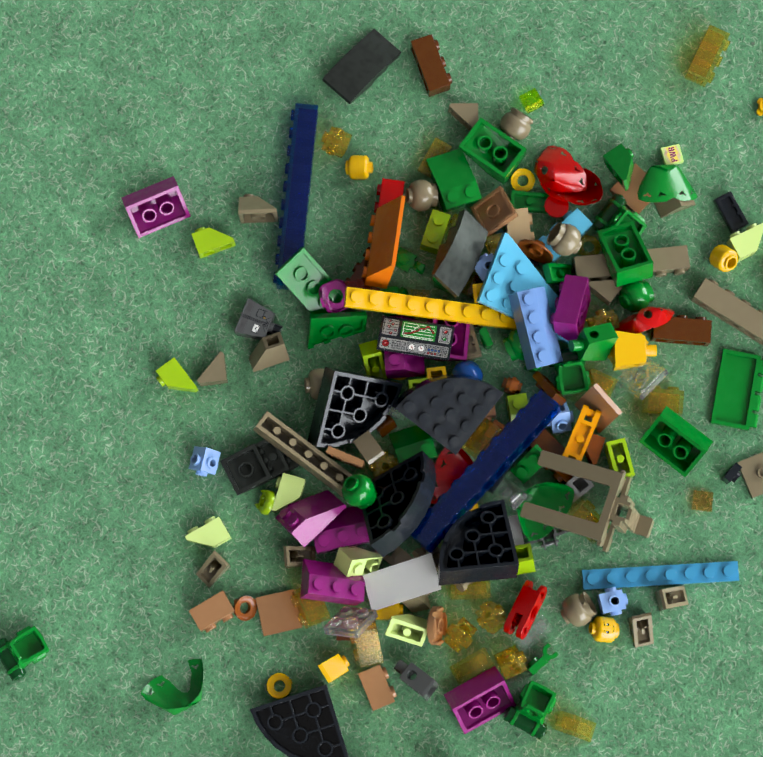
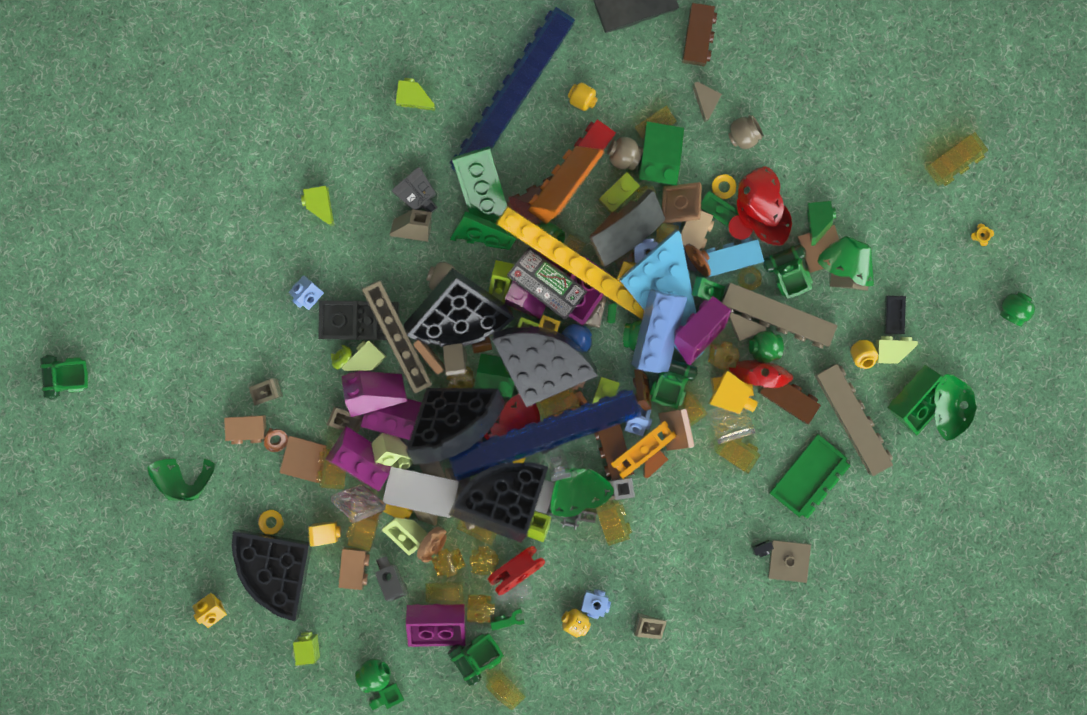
camera: 30 degrees right, 10 degrees up
(156, 207) = (380, 37): magenta slope -> none
(210, 534) = (278, 360): yellowish green slope -> none
(215, 372) = (356, 218): dark tan slope -> none
(256, 210) = (467, 87): dark tan slope -> none
(324, 290) = (485, 204): magenta piece -> none
(335, 141) = (573, 62): clear yellow brick -> none
(359, 491) = (424, 394): green piece -> none
(406, 261) = (578, 205): green plate -> none
(493, 150) = (711, 145): green slope -> none
(511, 385) = (611, 369): dark orange plate -> none
(527, 465) = (589, 447): green plate -> none
(531, 100) = (772, 116): clear neon green tile -> none
(564, 239) = (729, 264): dark tan piece -> none
(578, 609) = (562, 595): dark tan piece -> none
(594, 342) = (704, 371): green torso -> none
(611, 511) = (614, 543): dark tan piece -> none
(619, 457) = (669, 484): lime brick -> none
(625, 254) = (776, 305): green slope -> none
(641, 629) = (608, 639): dark tan slope -> none
(660, 575) = (650, 602): dark azure plate -> none
(672, 155) = (872, 234): tile -> none
(676, 441) = (728, 495): green brick -> none
(702, 501) = (723, 557): clear orange tile -> none

